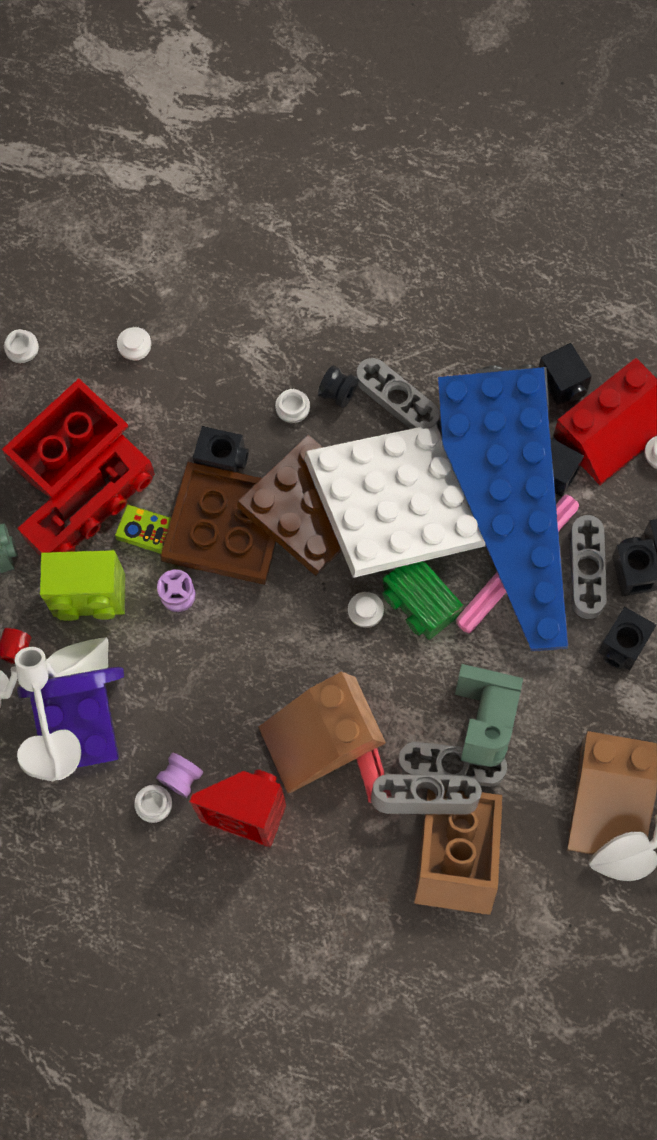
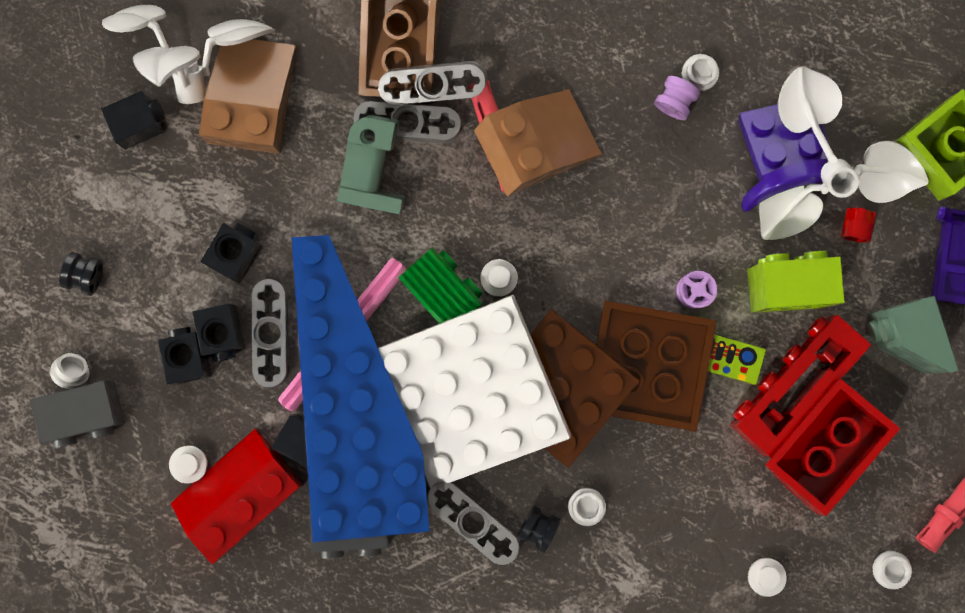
camera: 170 degrees right, 15 degrees up
(214, 440) = (677, 450): black brick -> none
(243, 806) = (613, 50): red slope -> none
(566, 374) = (290, 550): black brick -> none

